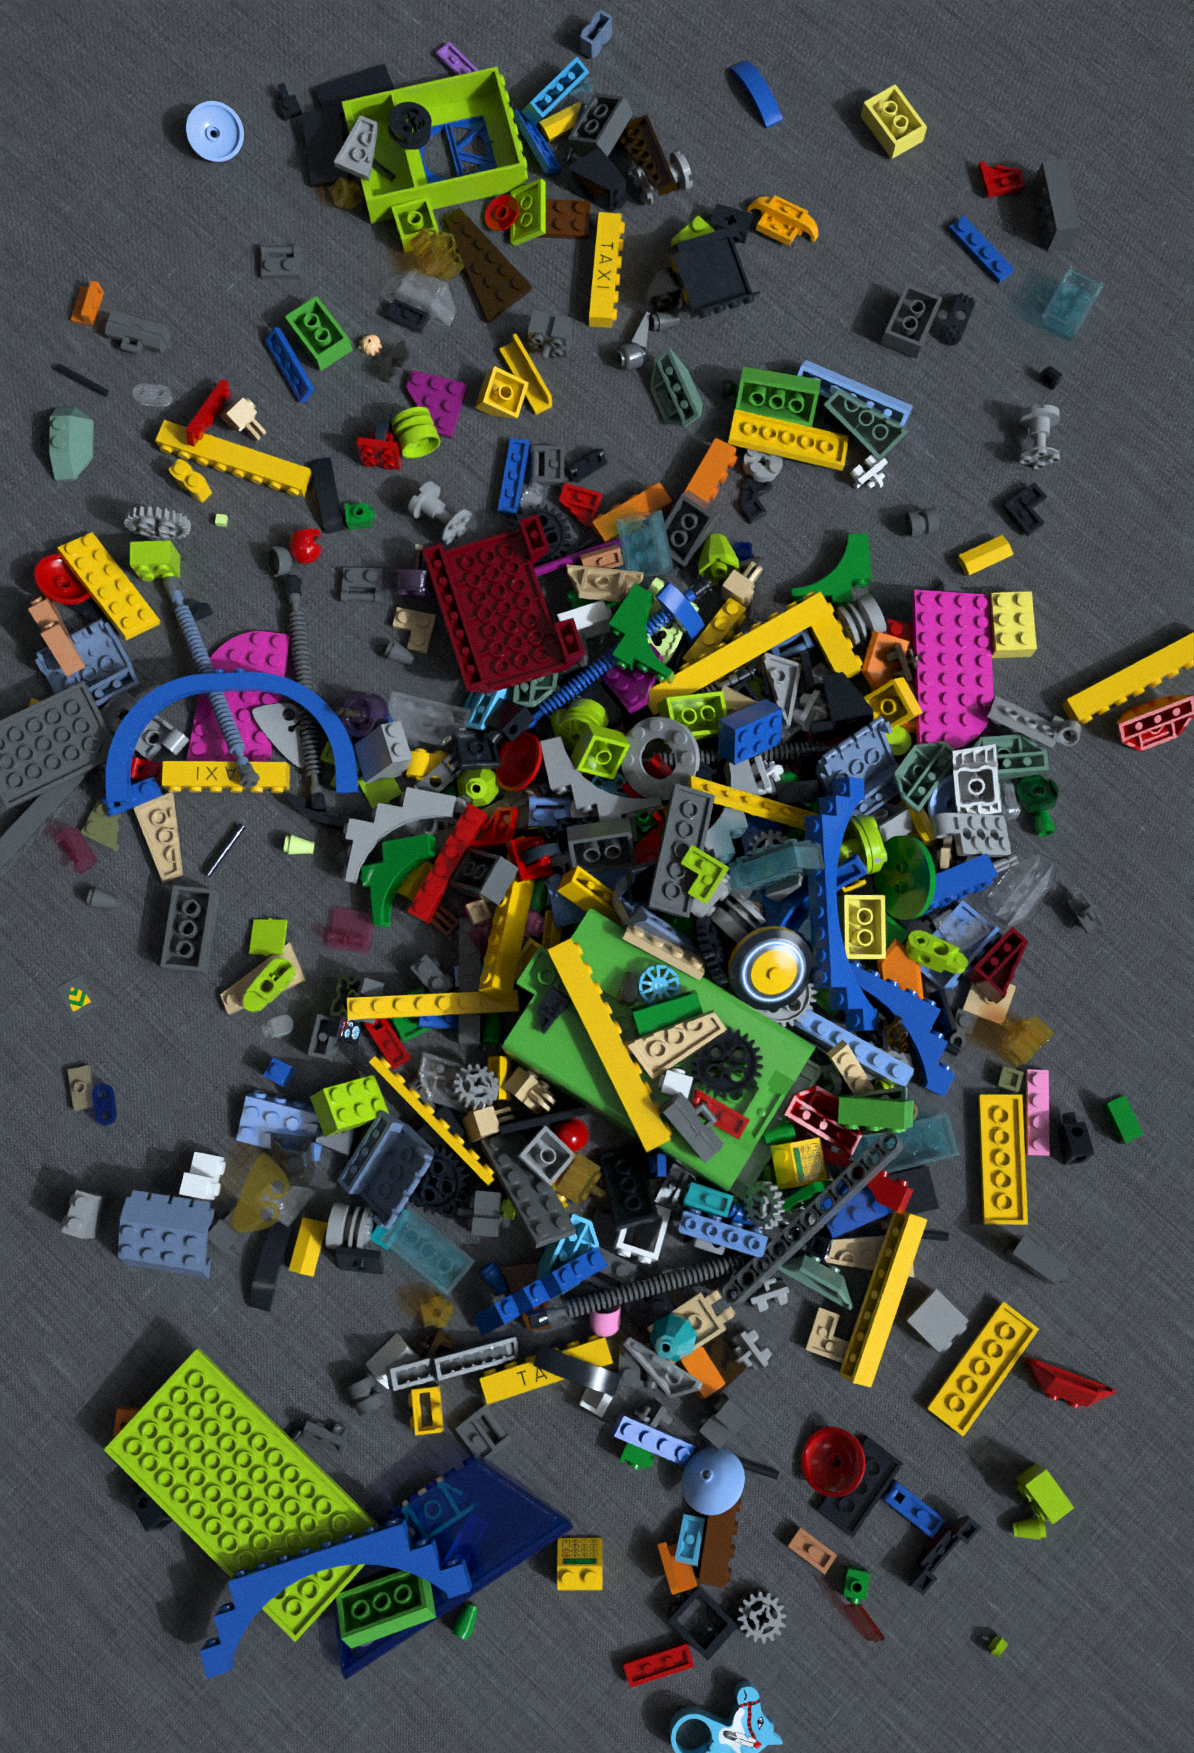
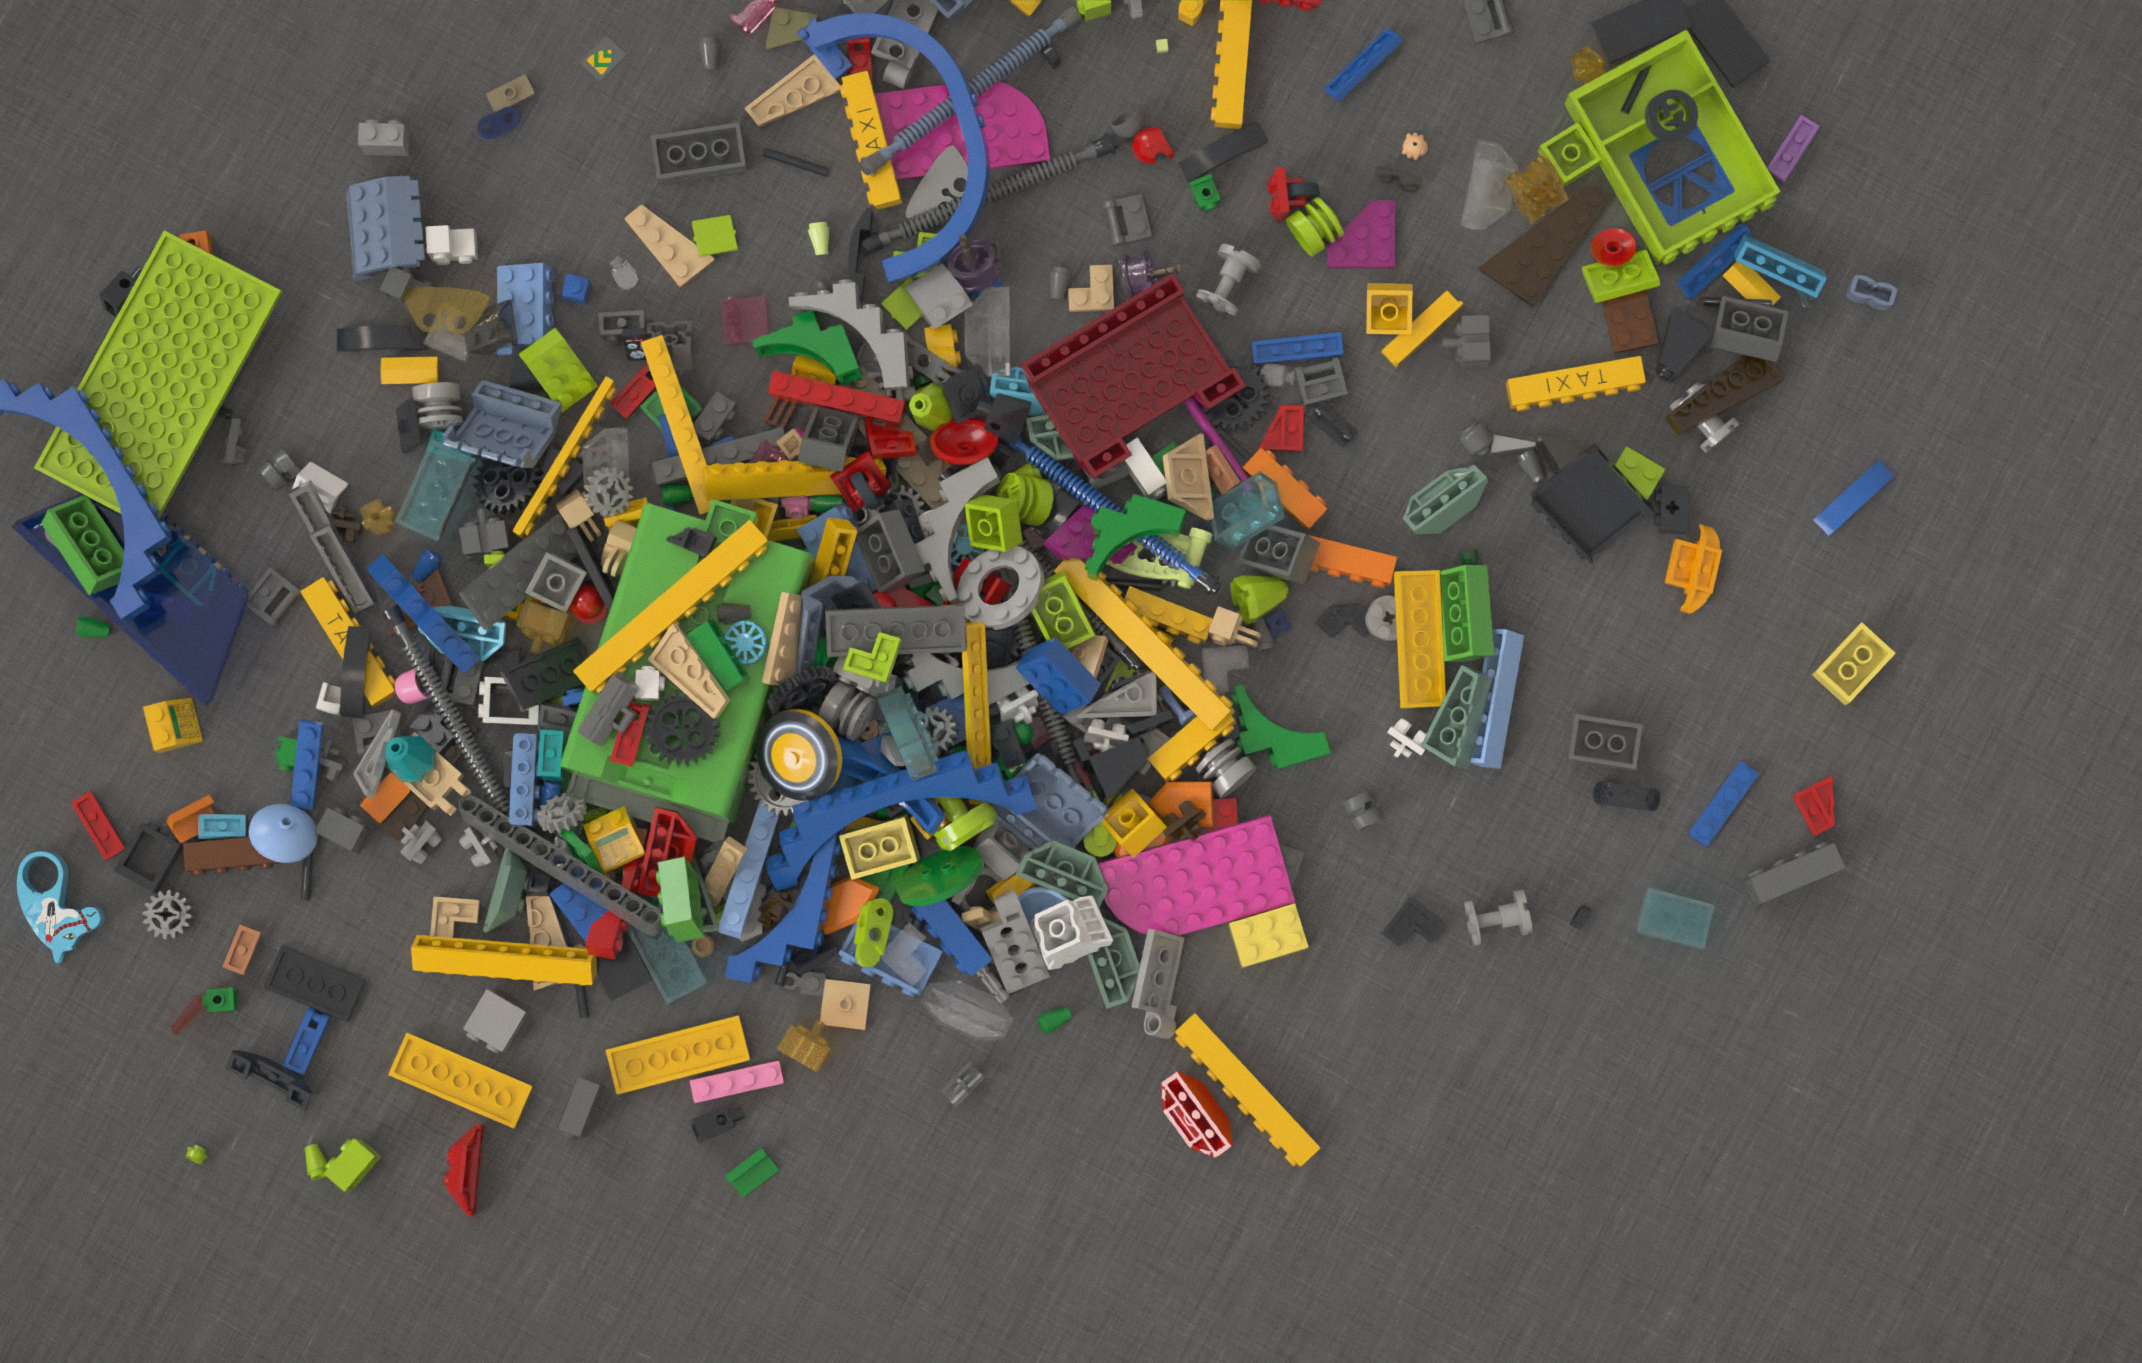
camera: 75 degrees right, 5 degrees up
(241, 415) = (1283, 30): tan brick -> none
(256, 998) = (645, 242): lime piece -> none
(318, 333) = (1406, 86): bright green brick -> none
(358, 149) = (1627, 67): light grey wing -> none
(407, 316) = (1458, 177): black plate -> none
(436, 1407) = (267, 527): yellow window -> none
(548, 817) = (912, 487): medium blue plate -> none
(683, 612) = (1174, 569): blue slope -> none
(780, 1134) = (640, 814): green cone -> none
(820, 1460) = (330, 939): red dish -> none
(985, 555) = (1343, 890): yellow piece -> none
(997, 967) = (880, 1002): dark red wedge -> none
(1009, 805) = (1073, 972): clear plate -> none
(1010, 1079) = (763, 1044): olive plate -> none
(1034, 802) = (1069, 1005): dark green plate -> none

